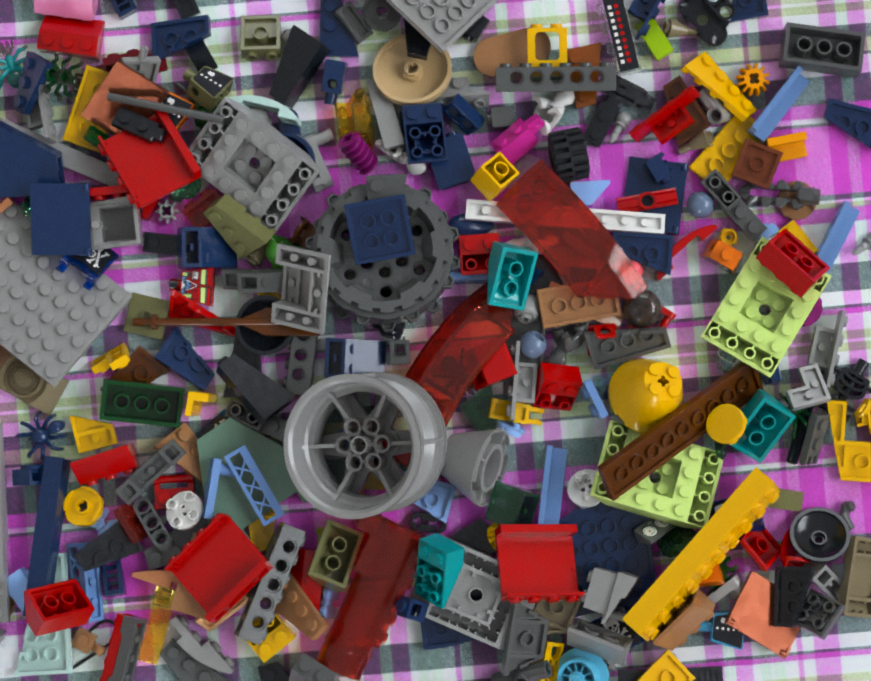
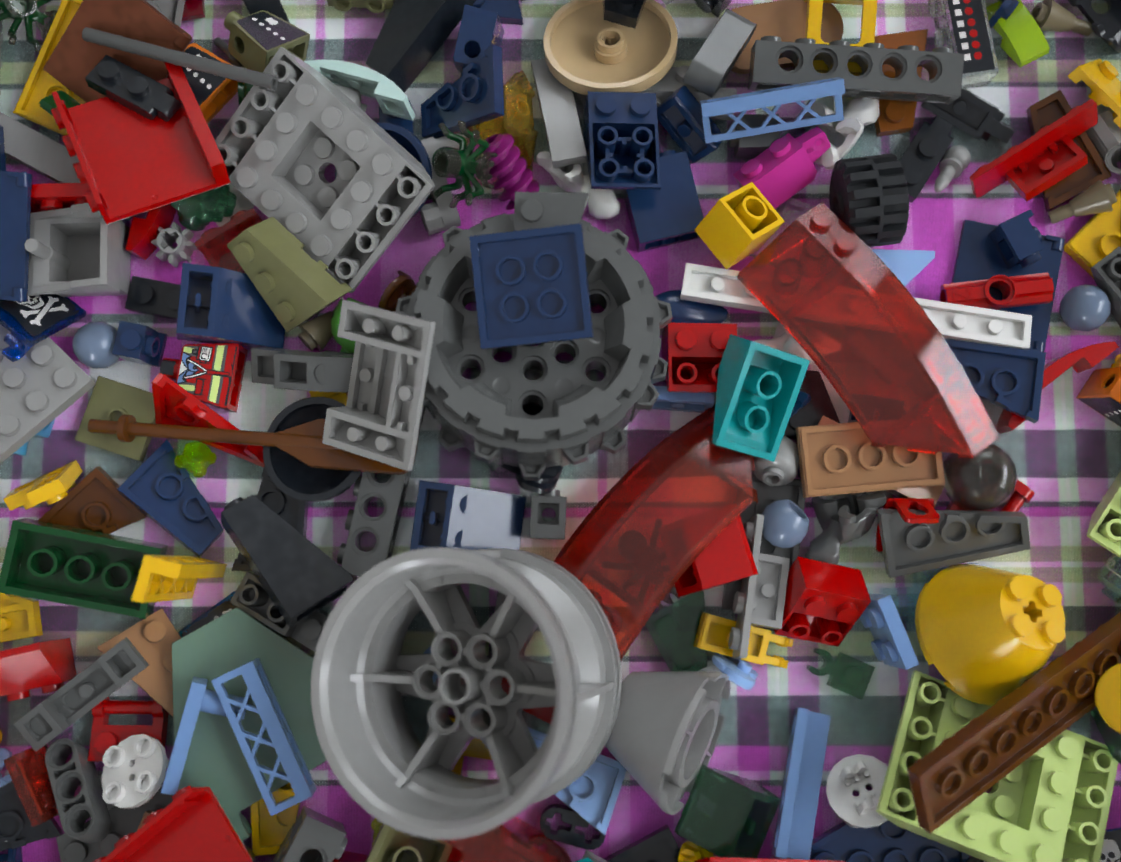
camera: 10 degrees right, 5 degrees down
(131, 274) = (95, 344): none -> sand blue piece
(155, 272) = (139, 344): none -> dark blue brick
(194, 331) = (196, 451): none -> clear neon green plate
(330, 154) = (462, 165): none -> animal
(331, 113) = (471, 98): none -> dark blue wing
(477, 71) = (719, 53): none -> beam
(508, 102) = (773, 97): none -> medium blue fence
(575, 425) = (845, 673): none -> clear green plate

